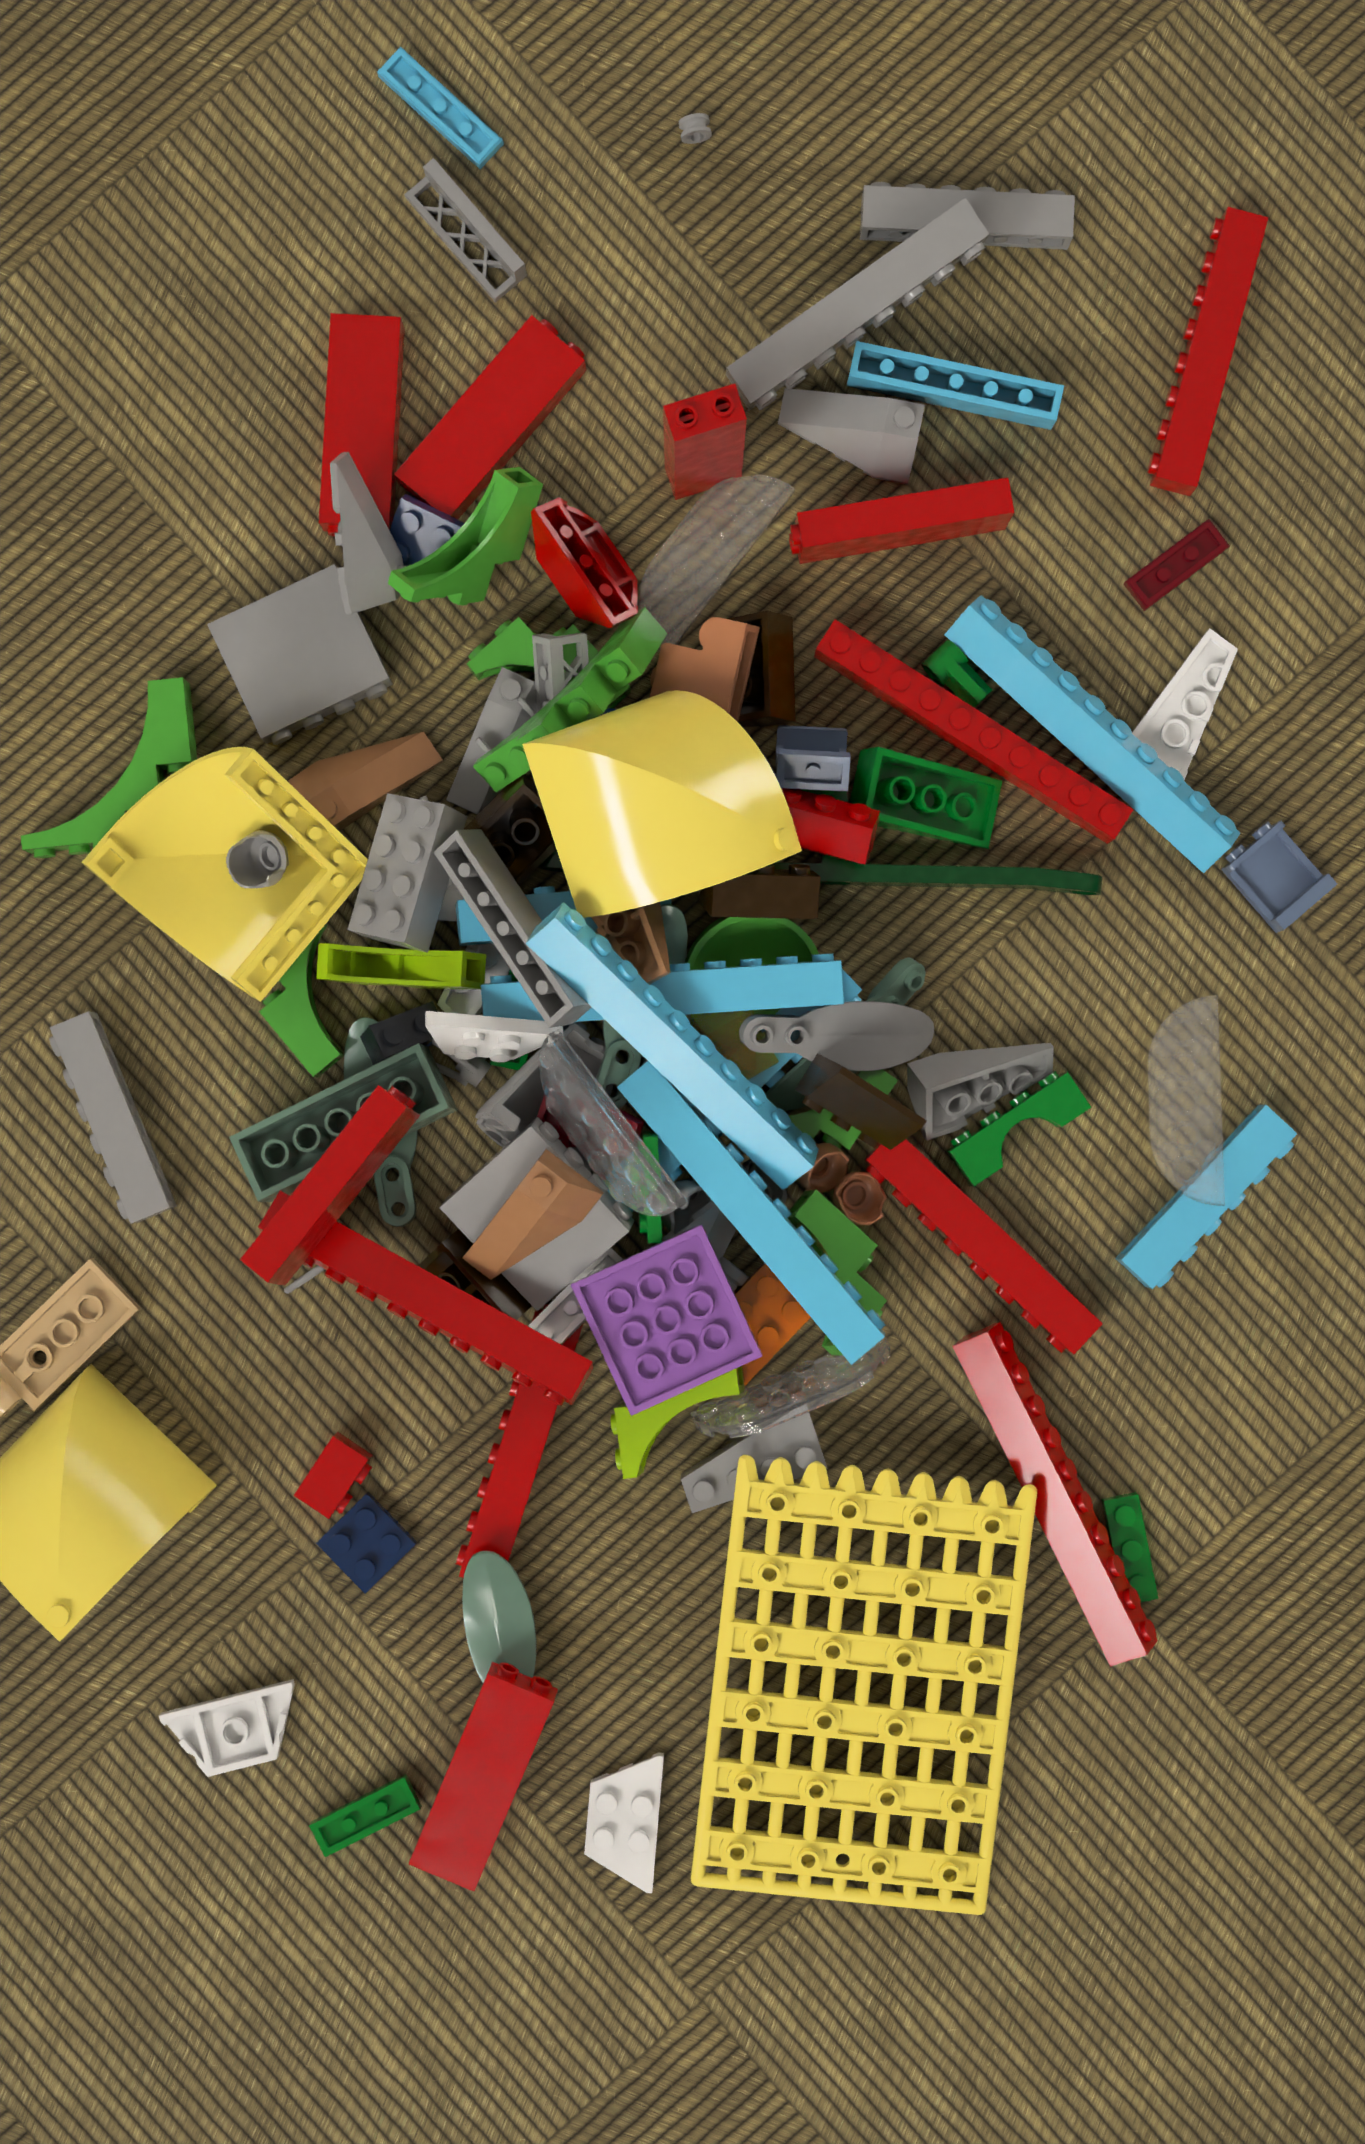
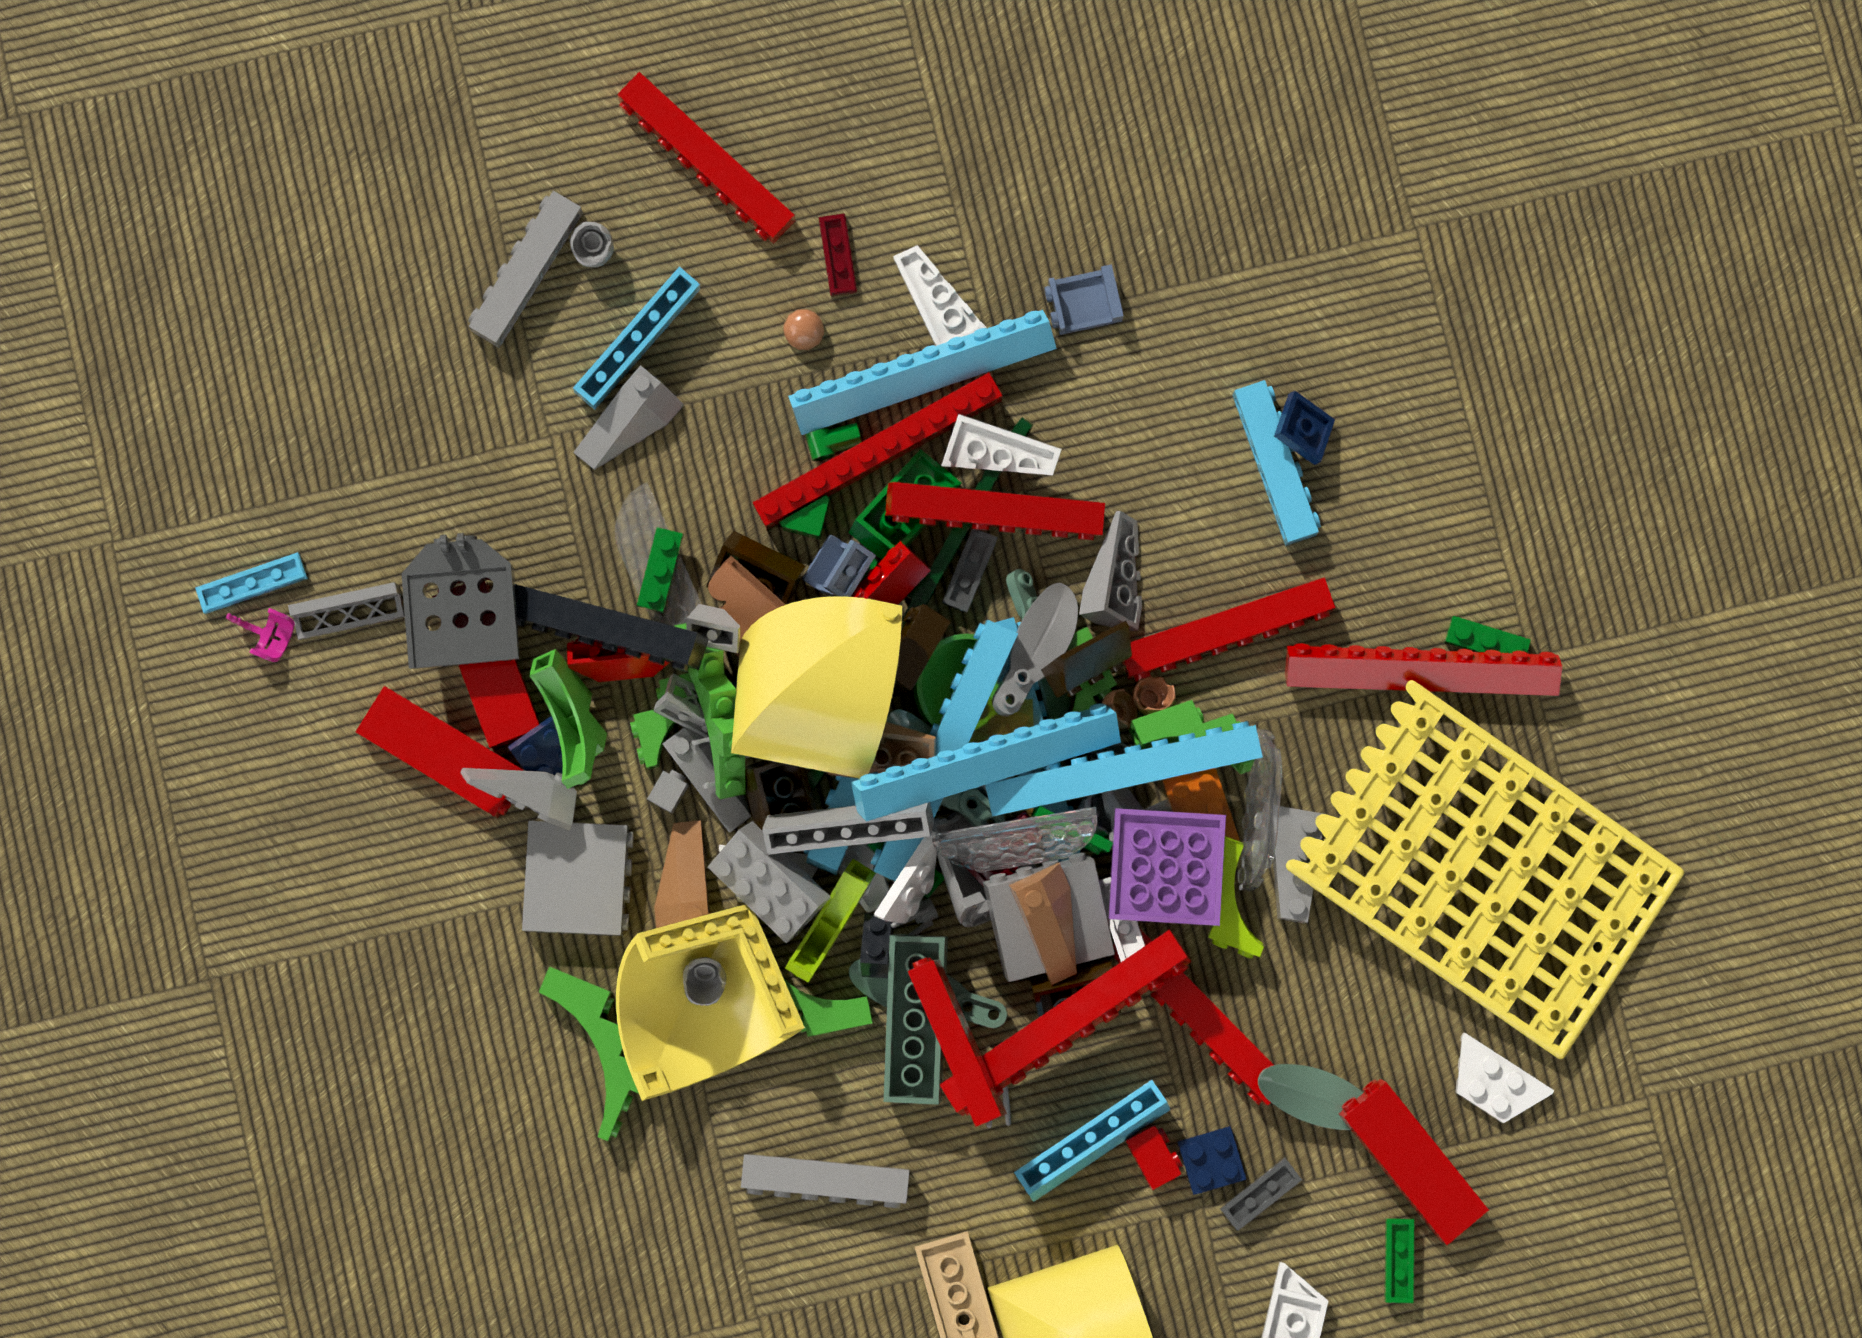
camera: 65 degrees left, 5 degrees down
(312, 1396) = (1092, 1140): none -> medium azure brick
(356, 1619) = (1260, 1194): none -> dark grey plate
(382, 176) = (284, 631): none -> dark pink helmet
(454, 705) = (668, 791): none -> light grey brick
(571, 308) = (445, 565): none -> dark grey hinge
(599, 527) = (610, 628): none -> black brick
(660, 648) = (715, 625): none -> light grey slope
(695, 128) = (363, 418): light grey bush -> none
(701, 557) = (660, 570): none -> green plate
(704, 440) = (592, 525): red brick -> none
(851, 697) = (809, 520): none -> green slope
(857, 304) = (549, 375): light grey brick -> none
(891, 911) = (969, 570): none -> dark grey plate
(901, 521) = (709, 422): red brick -> none
(976, 901) = (994, 509): none -> red brick
(980, 1153) = (1165, 598): green arch -> none
(1035, 275) = (591, 244): none -> light grey hair
(1047, 862) = (993, 448): none -> white wing
(1068, 572) = (803, 329): none -> nougat hair
(1187, 1101) = (1204, 440): clear plate -> none
(1265, 1208) = (1304, 427): none -> dark blue plate

